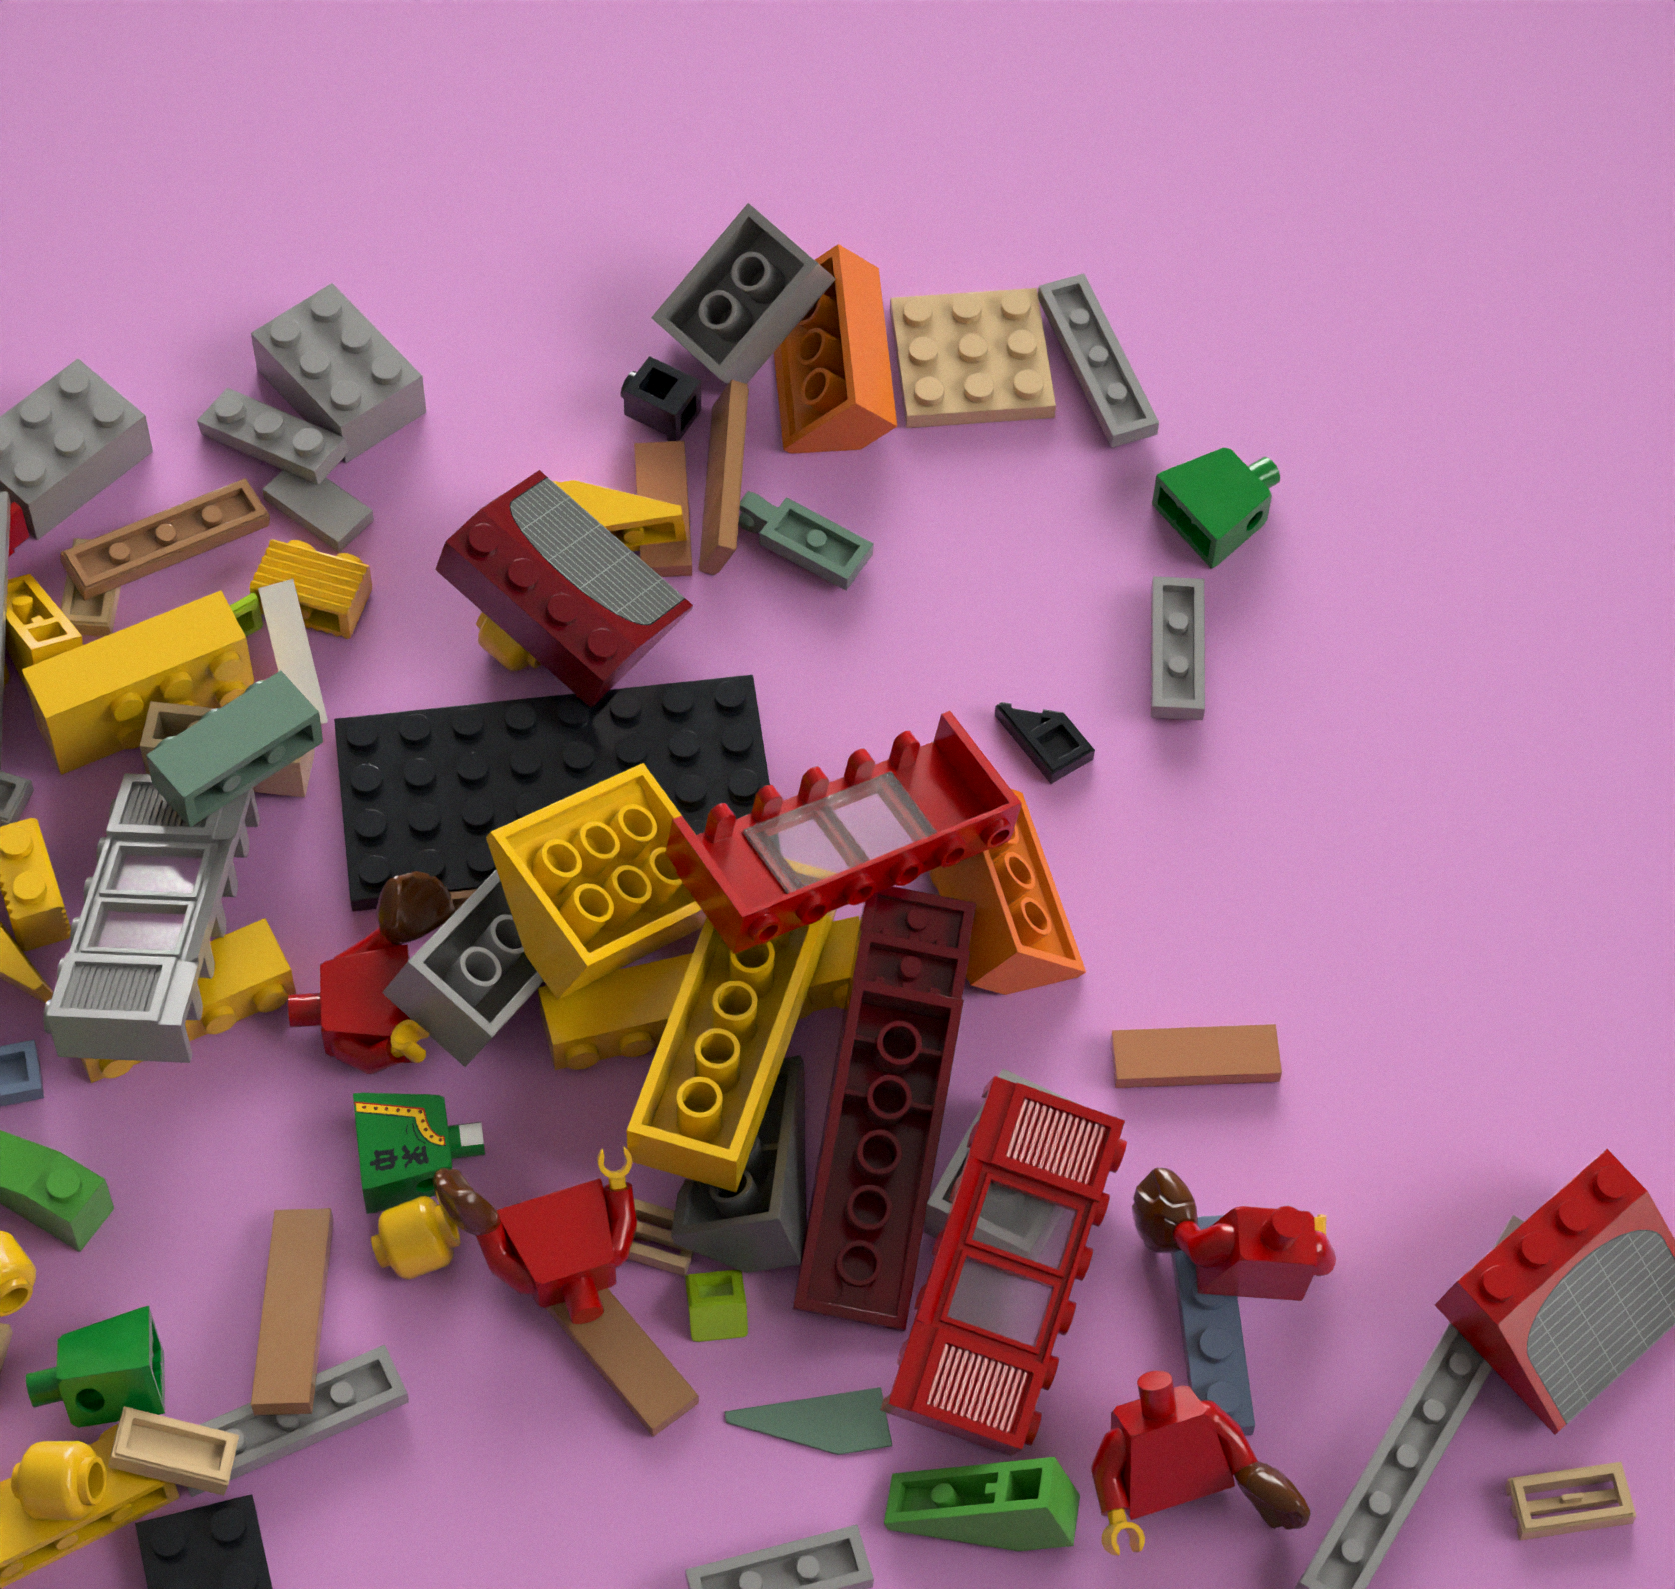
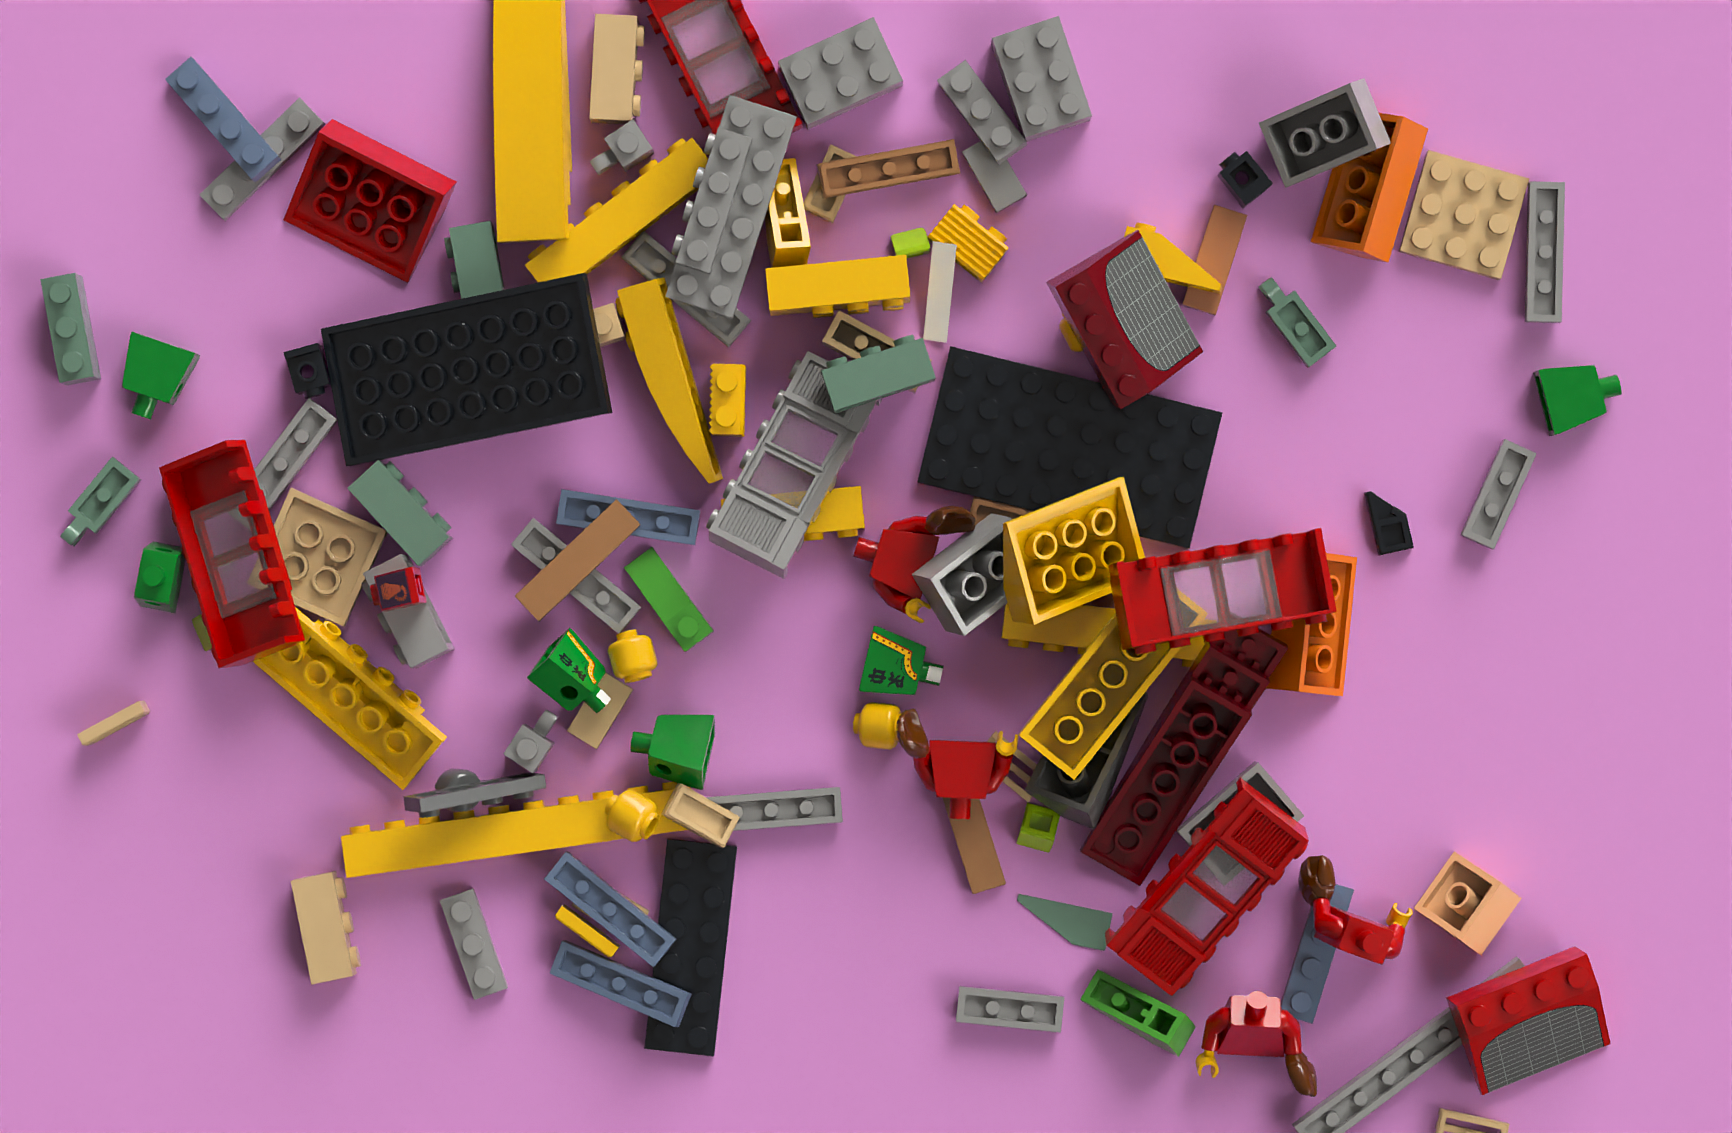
camera: 25 degrees right, 30 degrees up
(292, 1312) = (795, 745): medium nougat tile -> none
(724, 478) = (1261, 256): medium nougat tile -> none
(1195, 1056) = (1383, 778): nougat tile -> none
(1401, 1170) = (1467, 903): none -> light nougat slope

